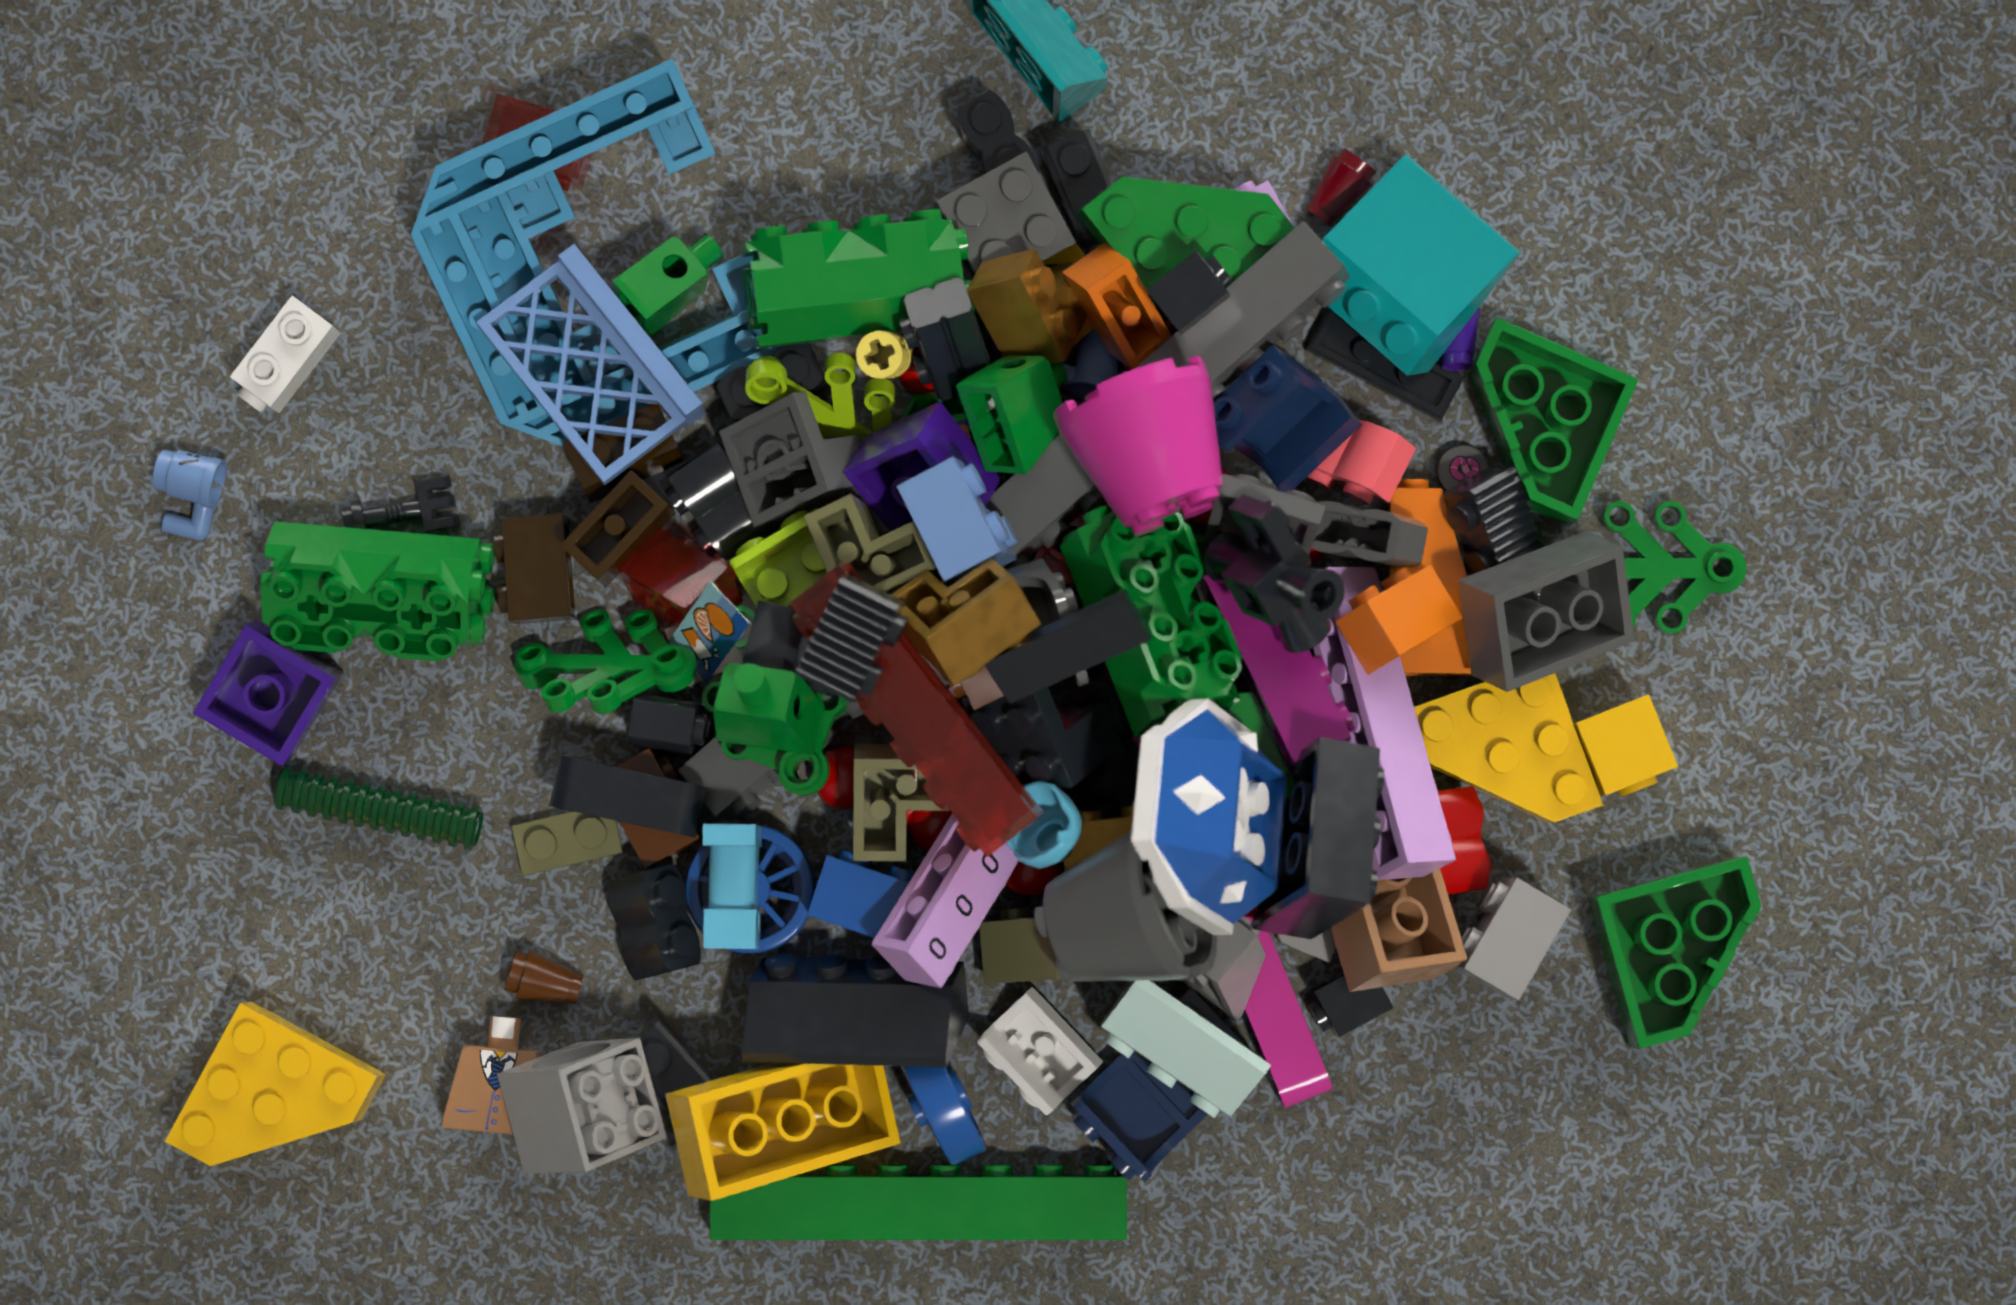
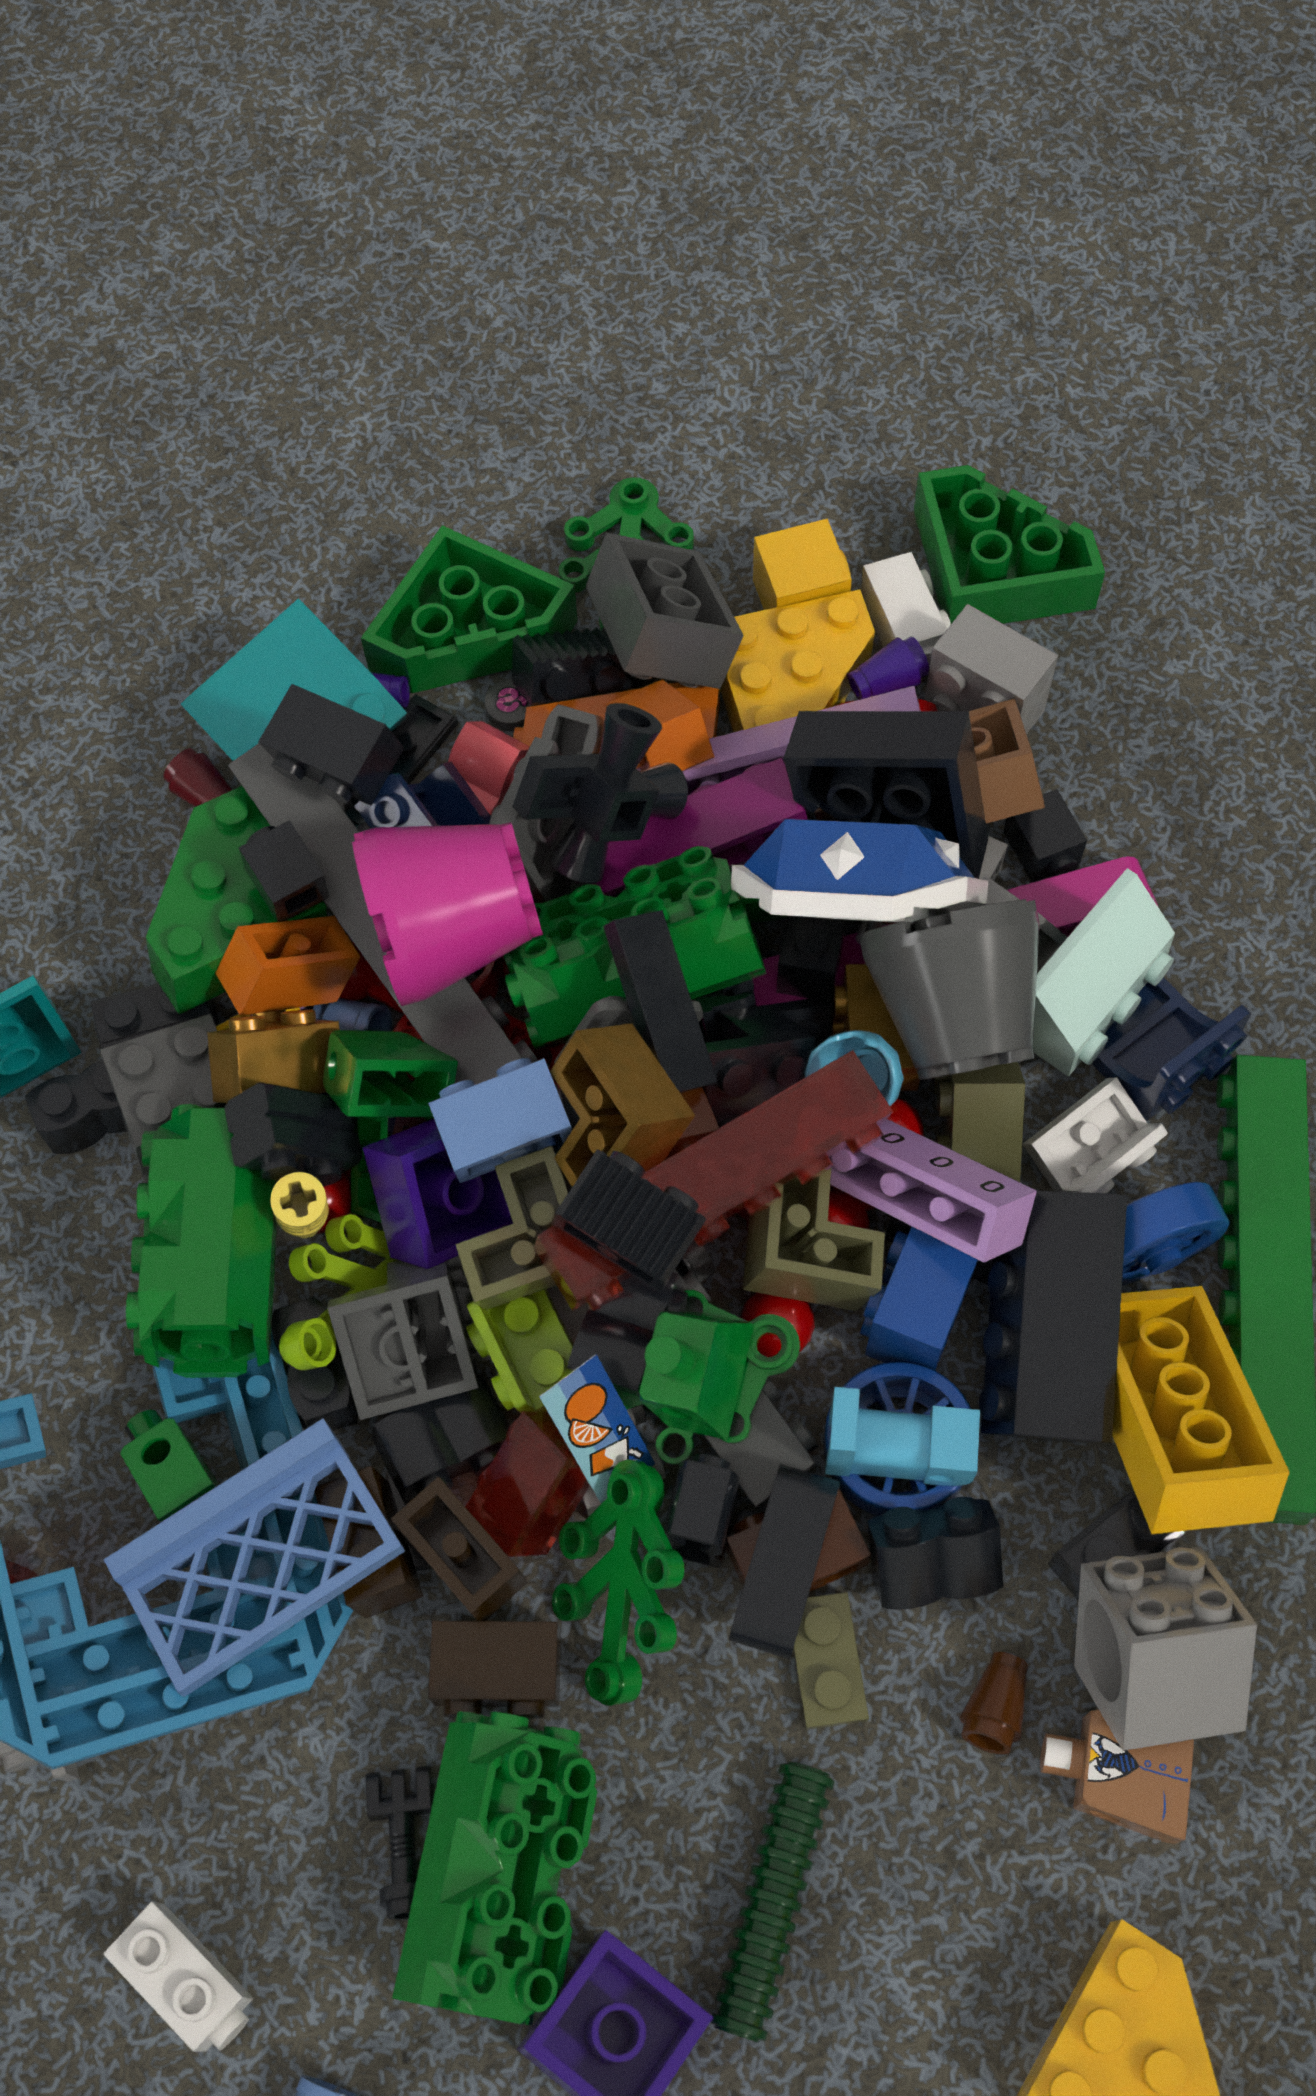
camera: 85 degrees left, 20 degrees down
(1310, 316) = (331, 746): none -> black brick
(1511, 839) = (890, 669): none -> dark purple cone
(1593, 853) = (903, 602): none -> white brick

